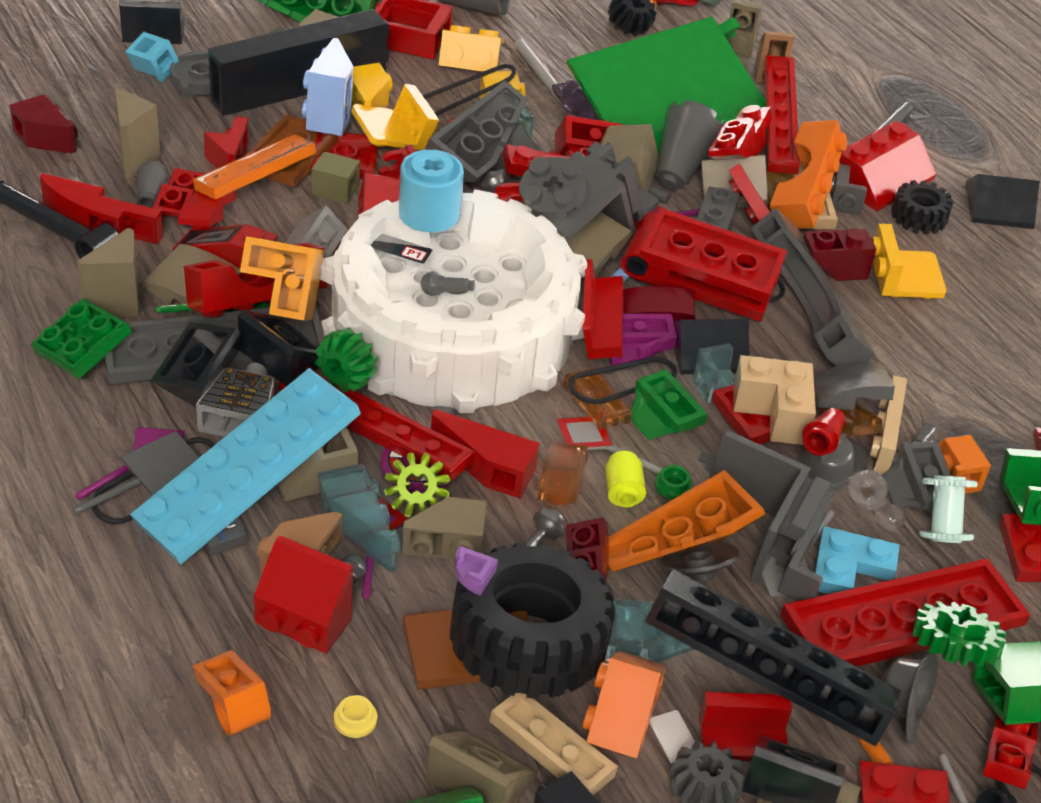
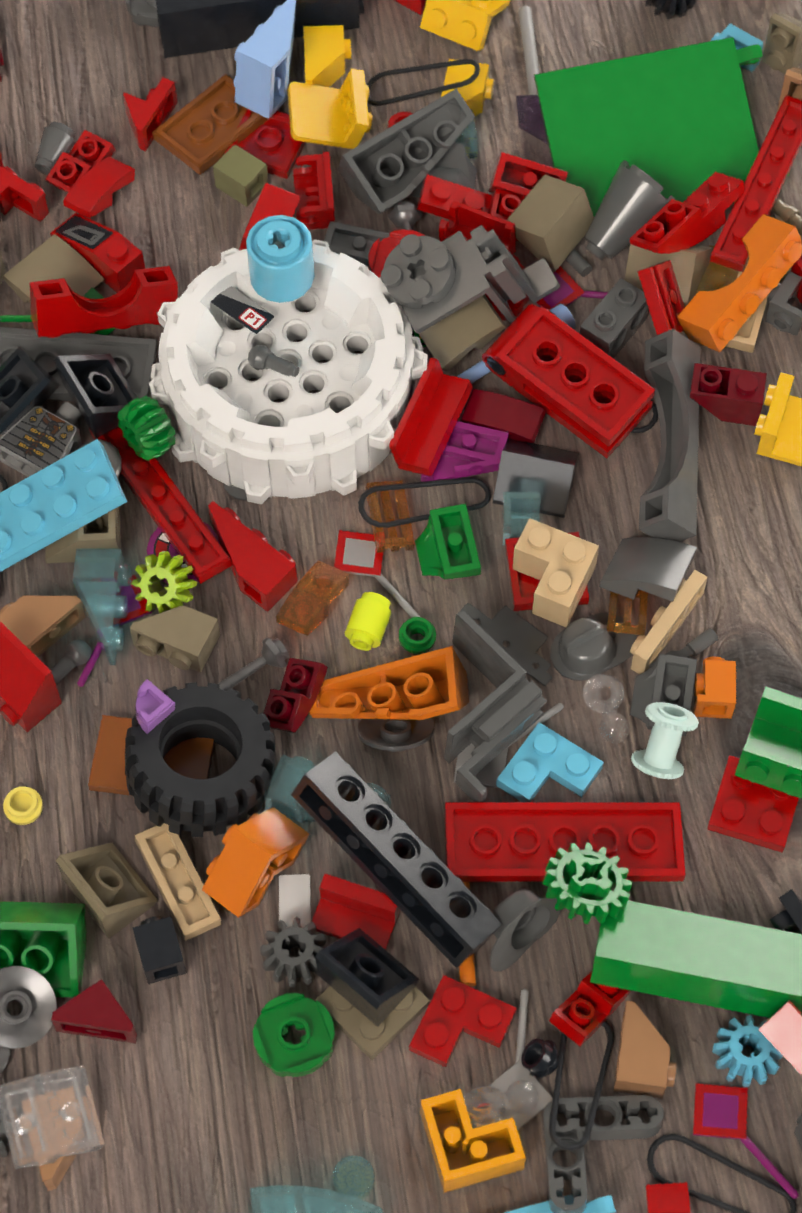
camera: 25 degrees right, 20 degrees up
(137, 131) = (52, 83): dark tan slope -> none
(254, 166) = (159, 148): orange tile -> none
(295, 274) = (127, 314): light orange brick -> none
(320, 229) = (191, 251): light grey panel -> none
(824, 432) = (573, 627): red cone -> none

